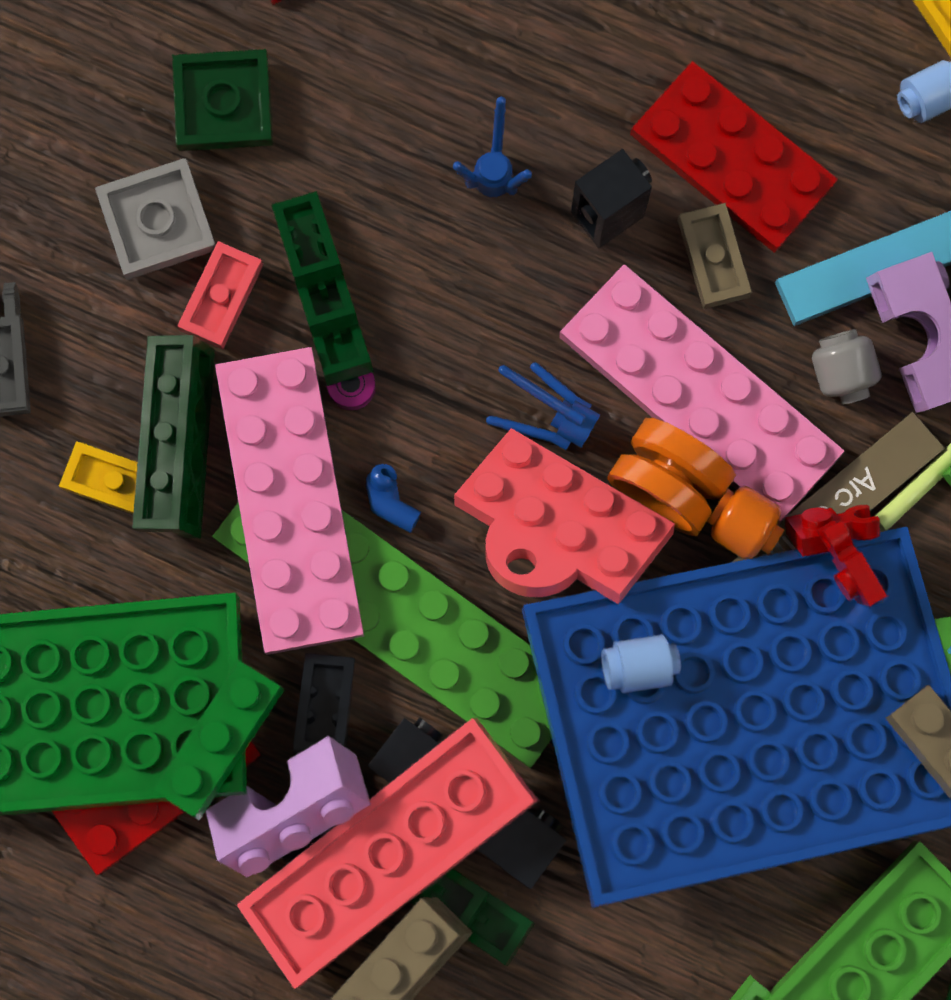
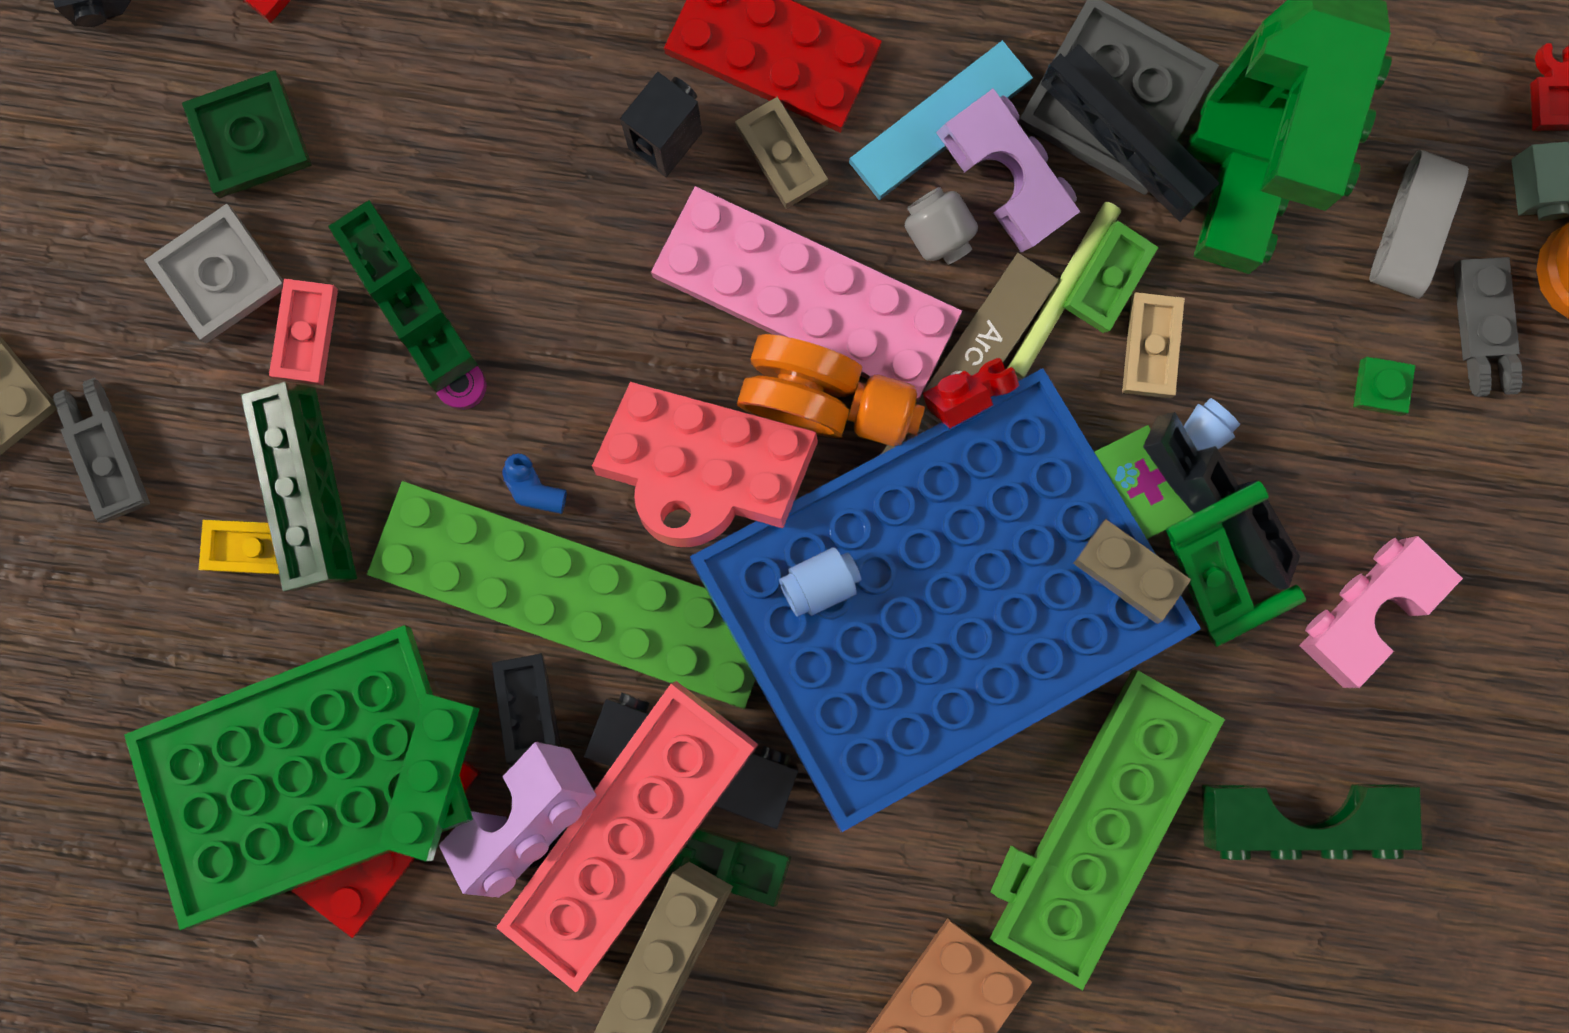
camera: 20 degrees left, 5 degrees up
(289, 501) = (430, 517): bright pink plate -> none
(494, 169) = (538, 127): blue plant -> none
(573, 415) = (687, 353): blue plant -> none
(855, 575) = (1006, 433): red plate -> none

